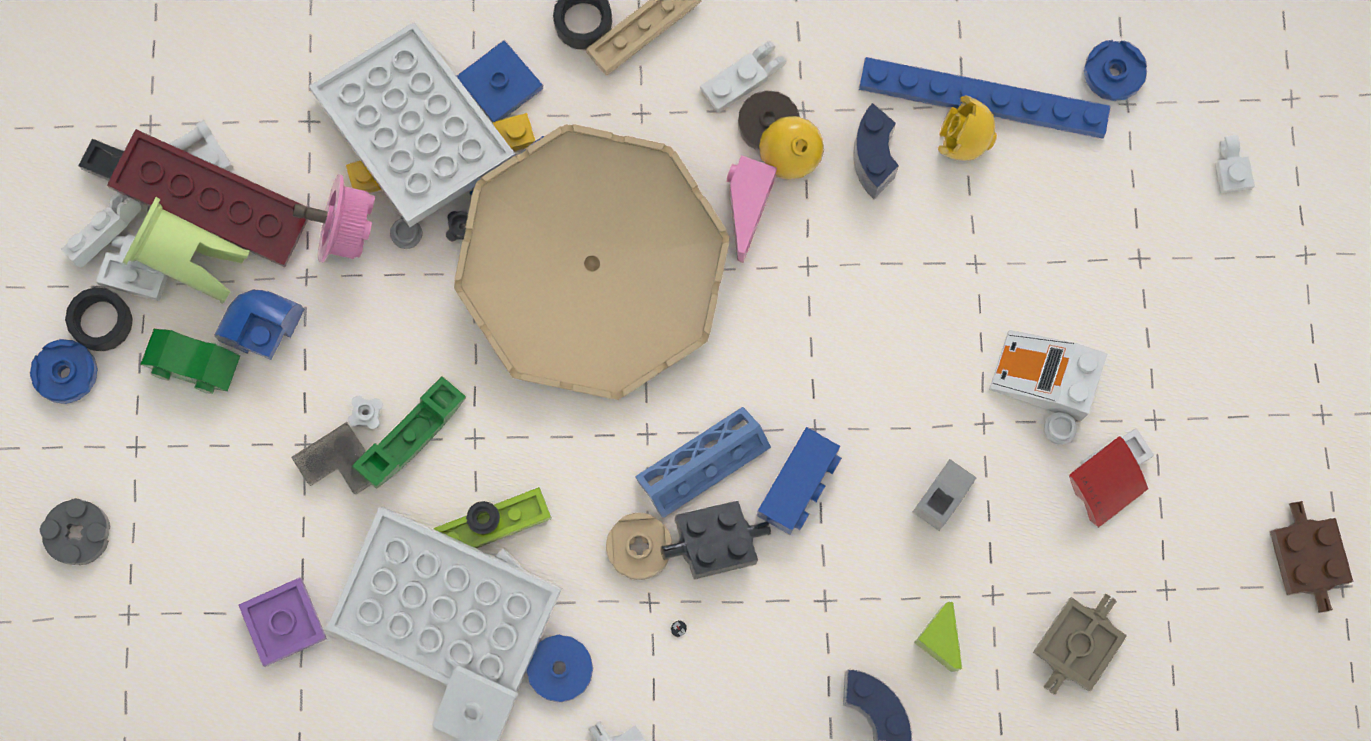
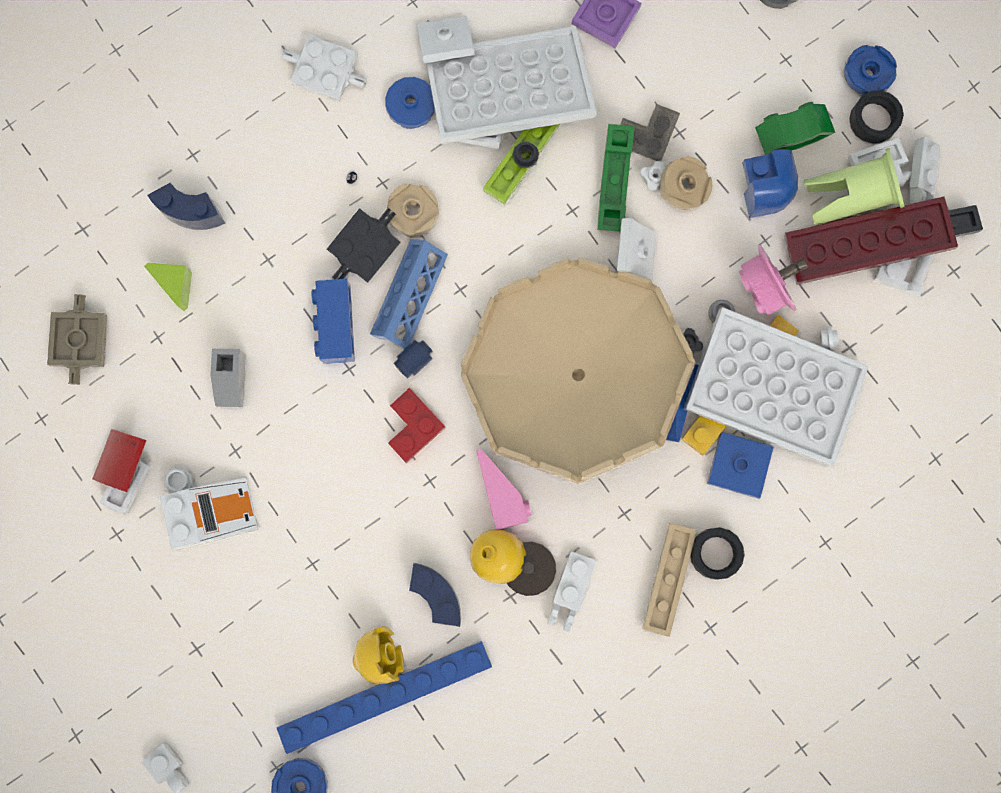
camera: 145 degrees right, 5 degrees up
(323, 138) = (829, 338): none -> white plate
(350, 394) = (672, 187): none -> tan plate
(445, 341) = (636, 249): none -> white plate
(744, 389) = (413, 358): none -> dark blue brick
(782, 320) = (420, 428): none -> red plate

